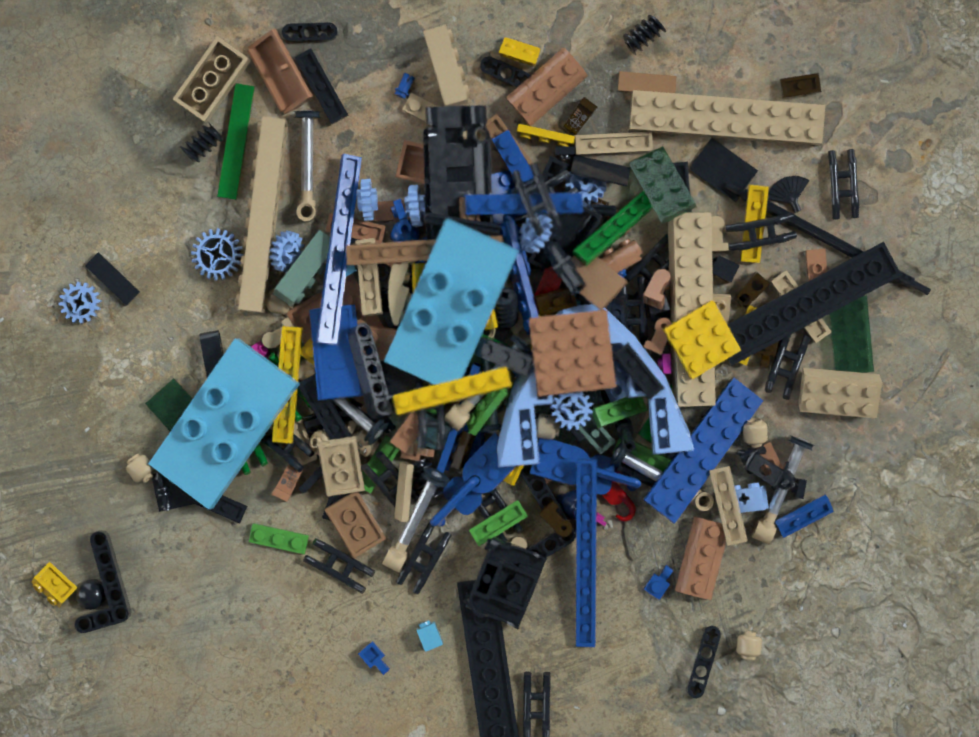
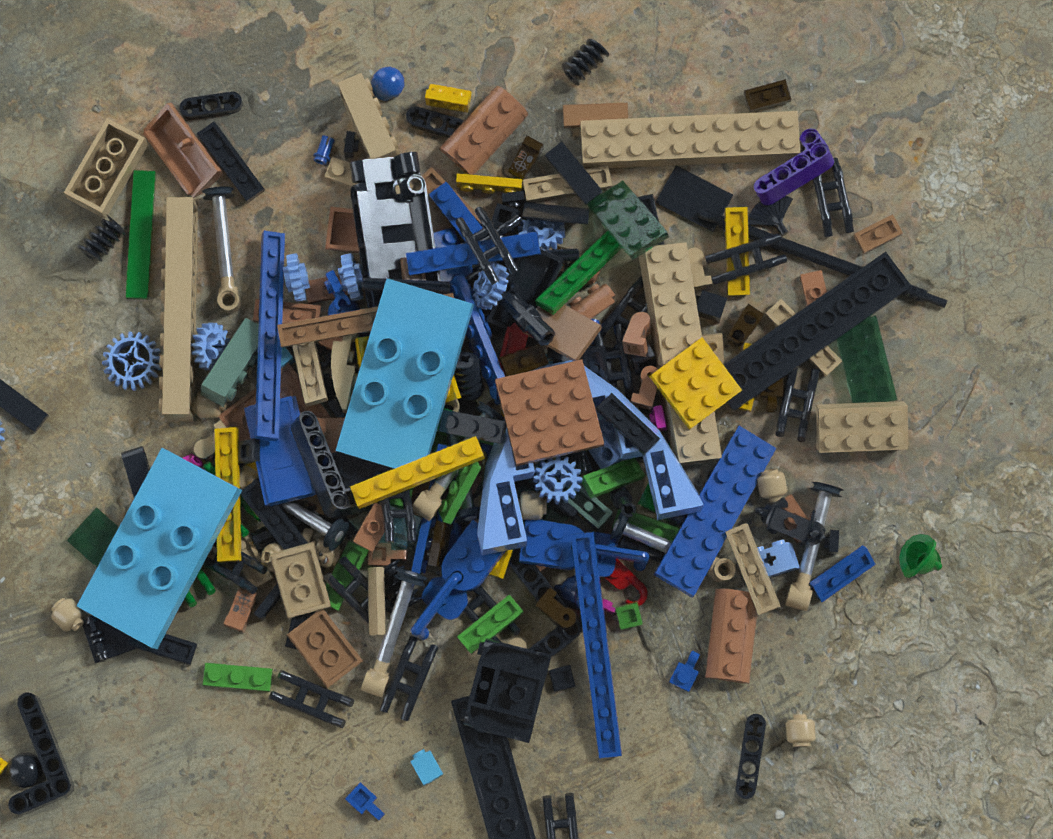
camera: 10 degrees left, 10 degrees down
(309, 350) = (249, 451): none -> black tile
(429, 84) = (351, 144): none -> black plate
(467, 31) = (387, 83): none -> blue hair
(553, 574) = (562, 678): none -> black tile
(617, 529) = (629, 615): none -> bright green plate
(620, 135) = (573, 173): none -> black tile
(813, 155) = (796, 171): none -> dark purple beam
(872, 510) = (919, 556): none -> green helmet
(879, 222) = (878, 234): none -> medium nougat plate

